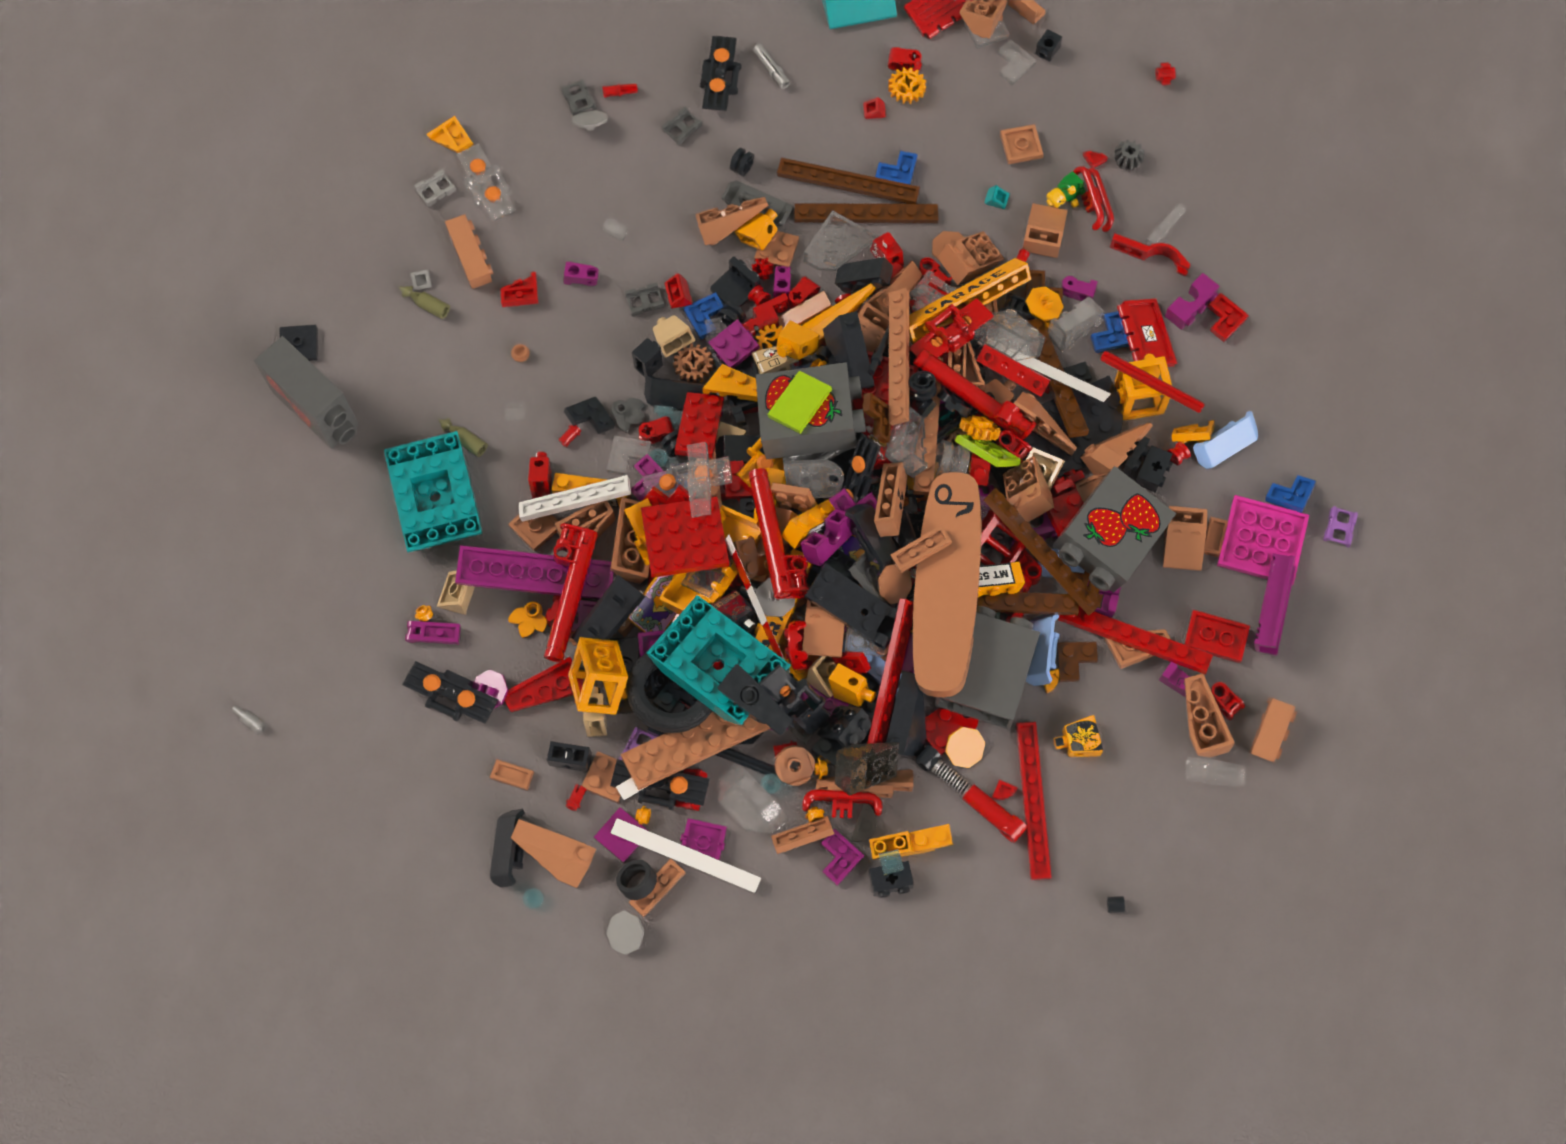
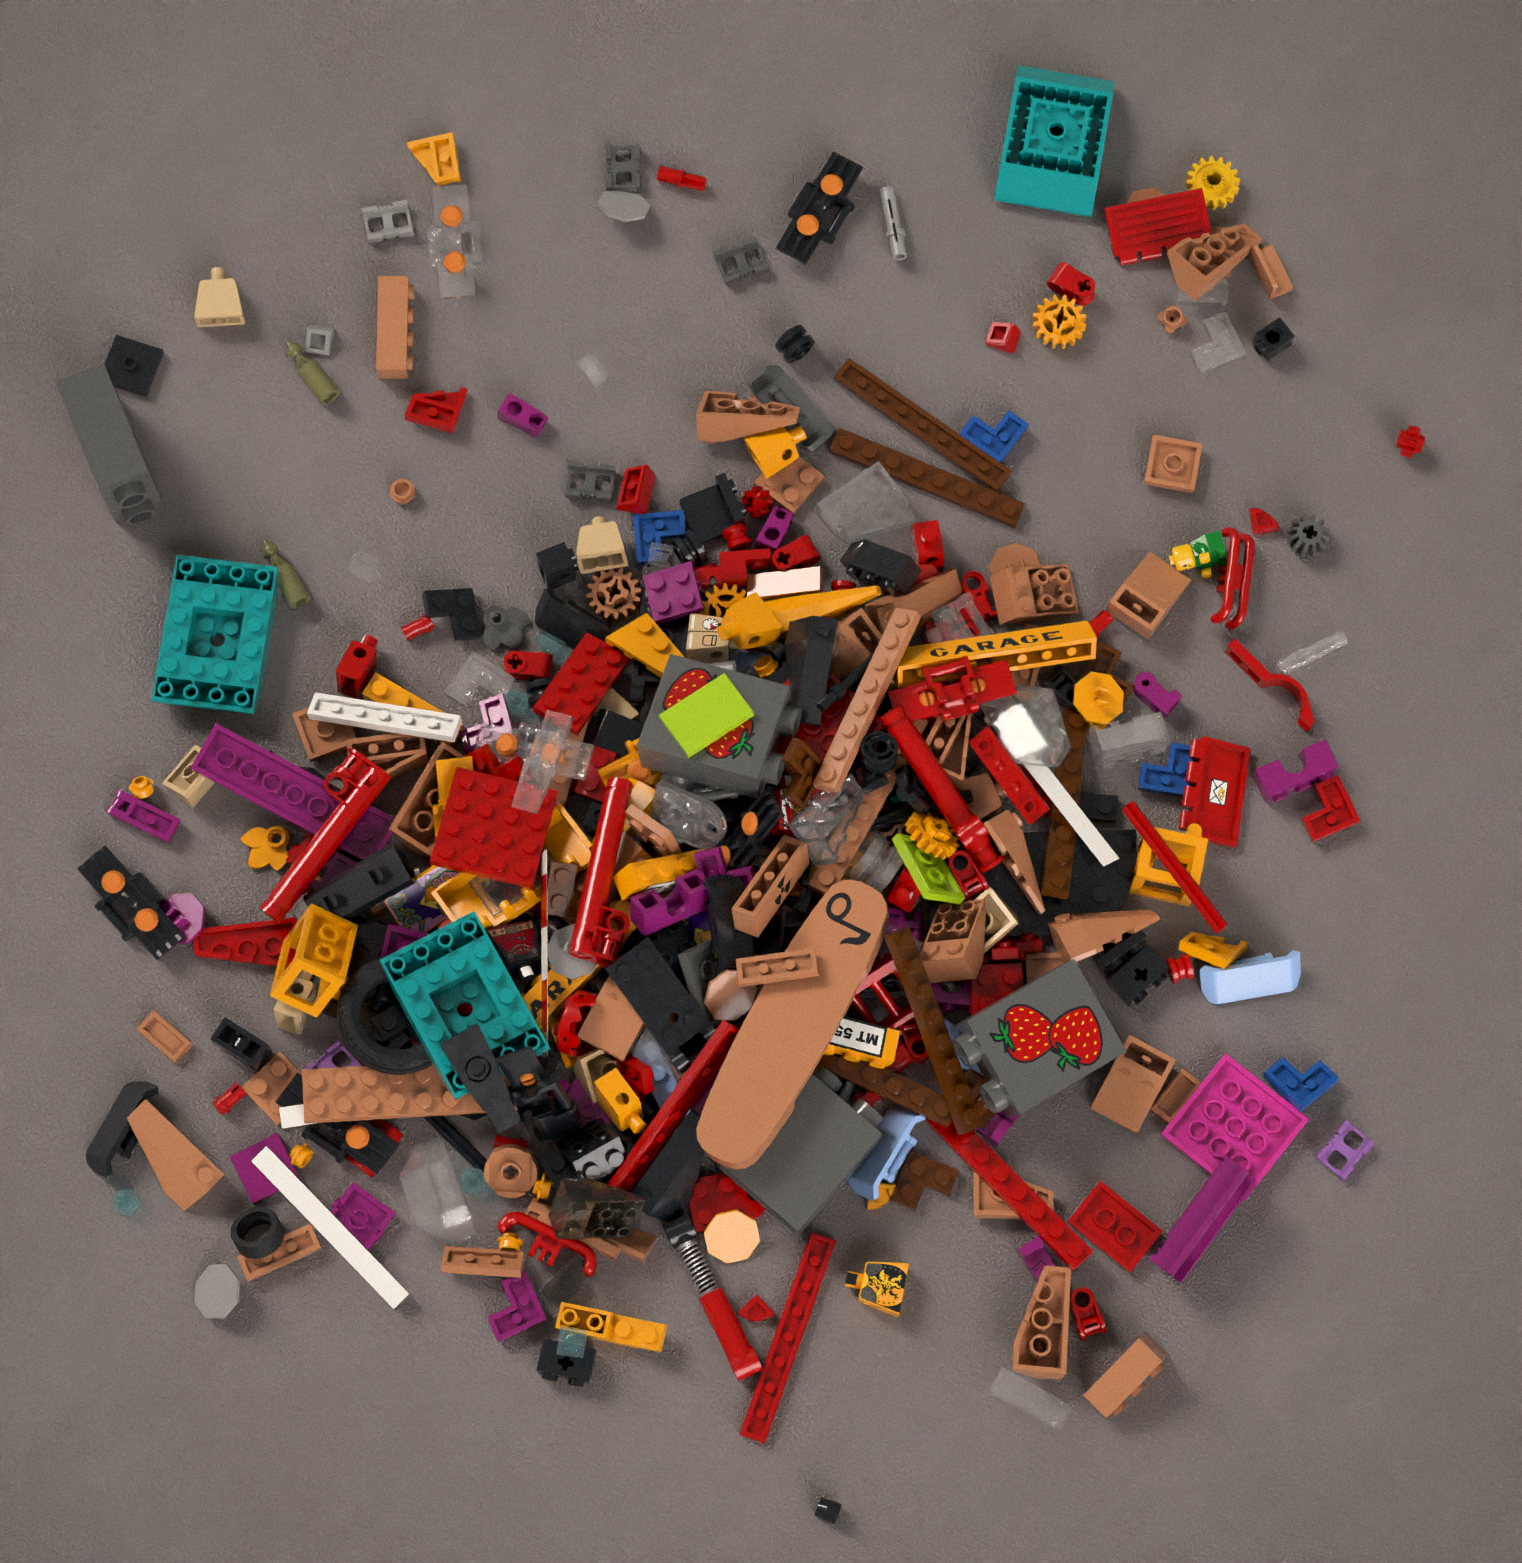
camera: 20 degrees right, 5 degrees up
(342, 279) = (218, 301): none -> tan torso
(978, 53) = (1172, 312): none -> nougat plate
(997, 197) = (1108, 524): teal slope -> none

